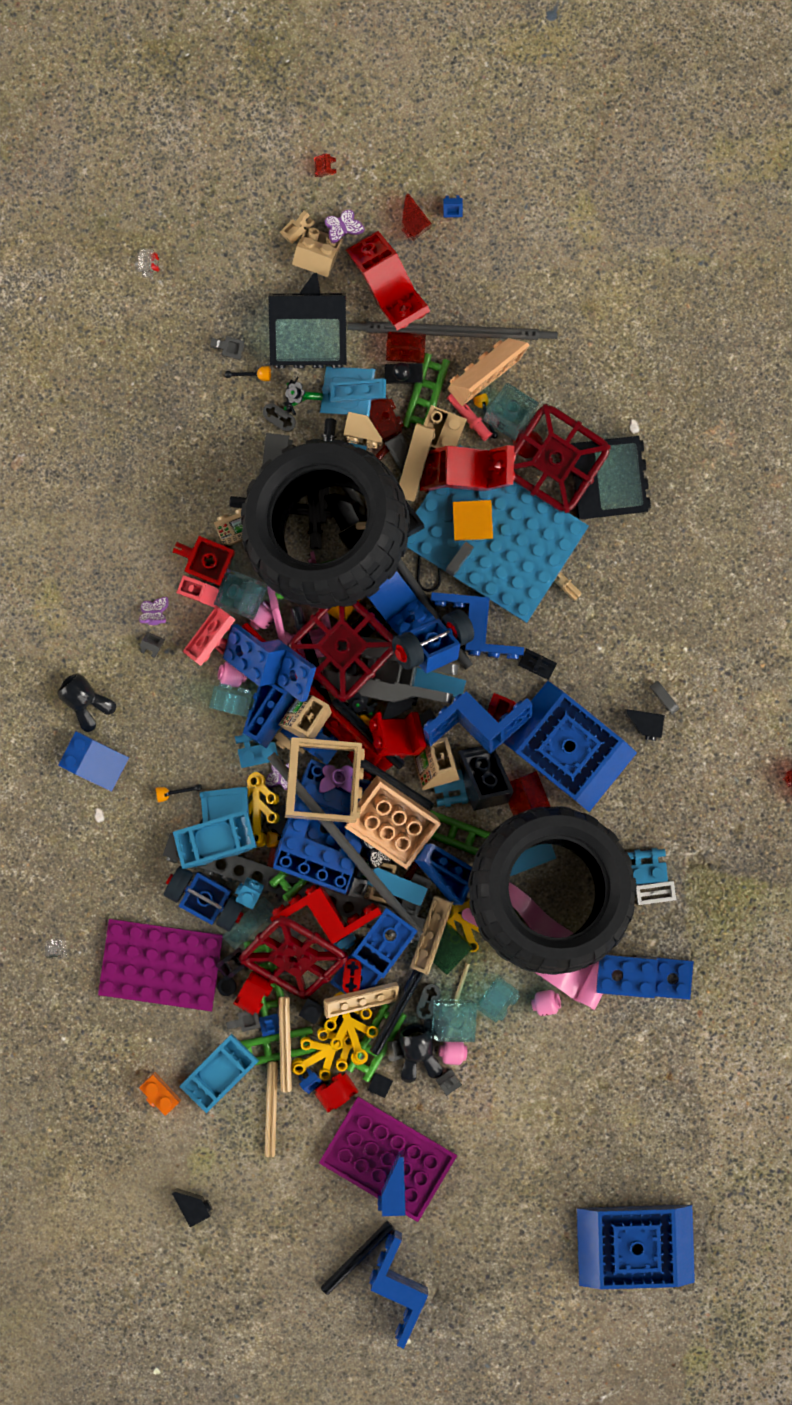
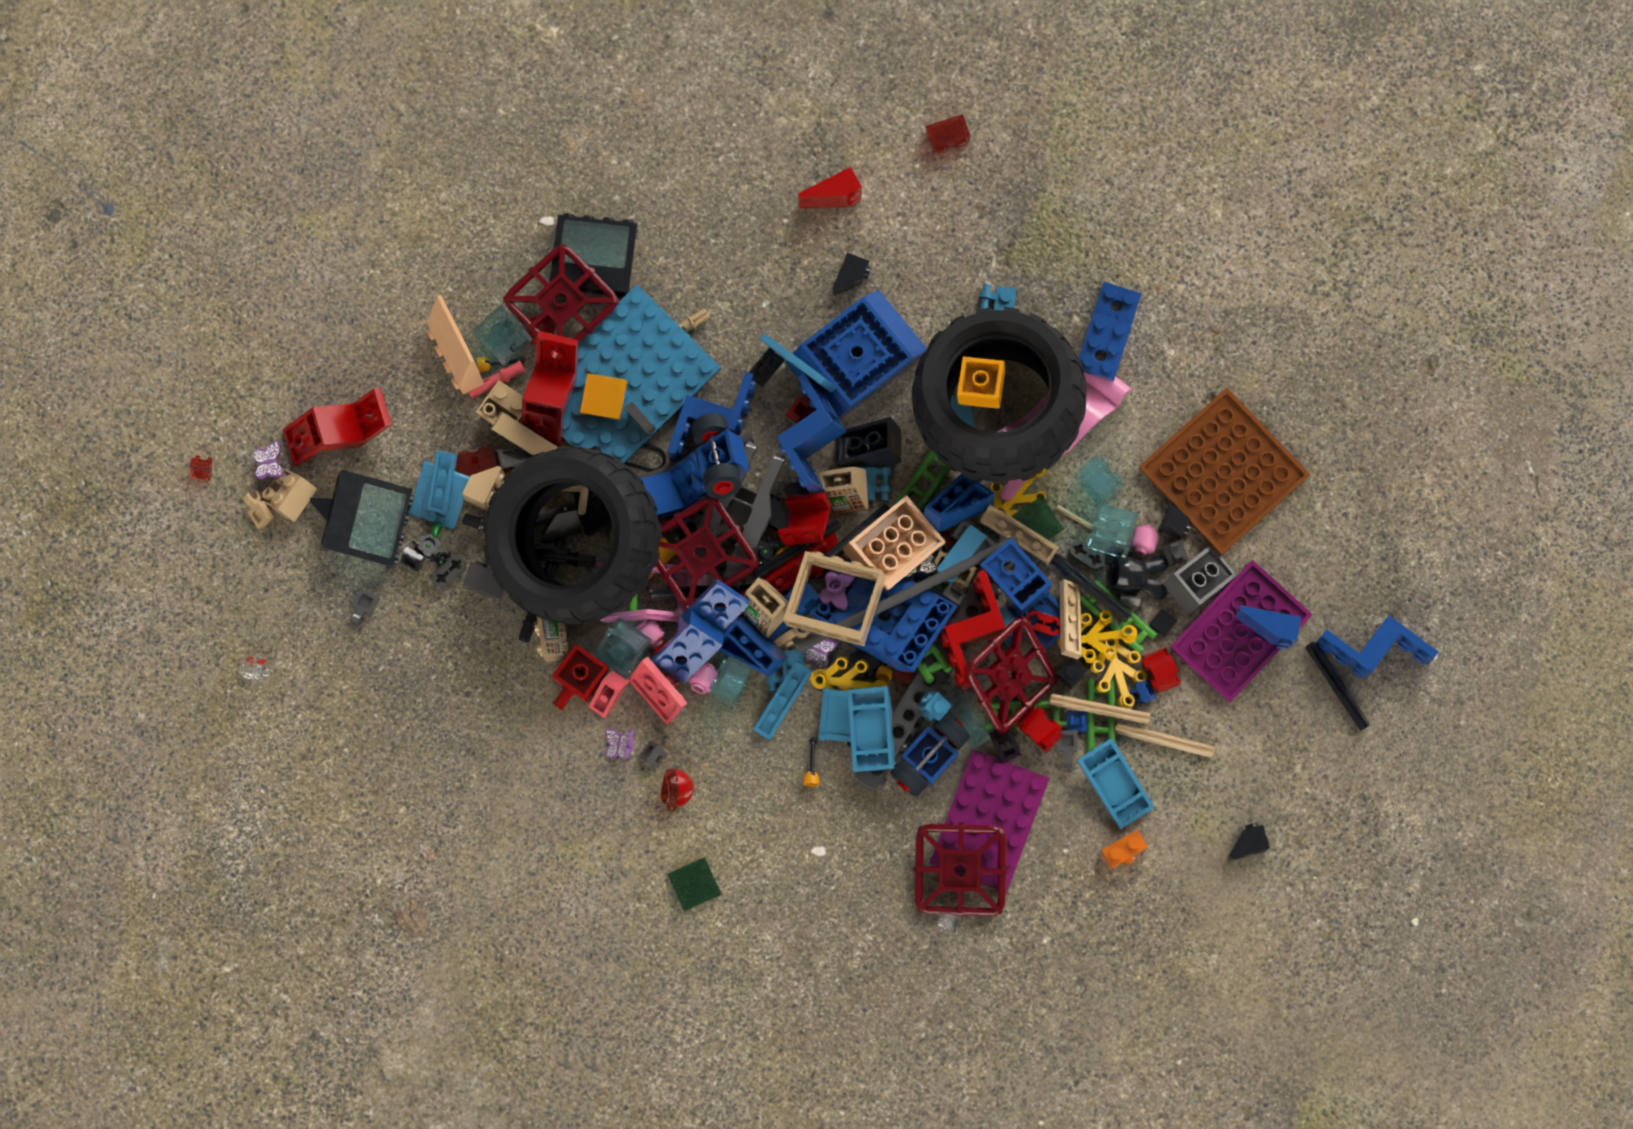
camera: 75 degrees left, 10 degrees down
(42, 710) = (694, 884): none -> clear green tile
(78, 694) = (689, 840): black piece -> none
(93, 761) = (760, 842): slope -> none
(115, 940) = (951, 859): none -> dark red plate
(124, 673) = (676, 788): none -> piece
(226, 987) = (1027, 758): black tile -> none
(227, 751) = (782, 700): none -> dark azure tile
(263, 373) = (399, 578): hinge -> none
(282, 380) = (412, 559): none -> black tile
(404, 373) = (435, 434): black tile -> none
(405, 347) = (409, 426): clear red brick -> none
(414, 220) = (279, 390): clear red slope -> none
(427, 1111) = (1199, 579): none -> dark grey slope
(436, 386) = (448, 421): bright green bar -> none
(439, 682) = (761, 467): dark azure tile -> none
(452, 207) = (278, 348): blue tile -> none
(455, 330) = (404, 375): dark grey axle -> none
(474, 1077) = (1175, 523): none -> black slope
(527, 794) = (898, 406): clear red slope -> none
(536, 1112) = (1224, 471): none -> dark orange plate
(543, 693) = (797, 363): none -> dark azure tile
(546, 1003) = (1114, 435): bright pink head -> none
(550, 874) = (981, 382): none -> light orange brick
(608, 1239) = (1378, 429): blue slope -> none
(656, 900) = (1034, 296): white tile -> none
(664, 697) = (829, 250): dark grey beam -> none
(721, 690) = (834, 192): none -> red slope

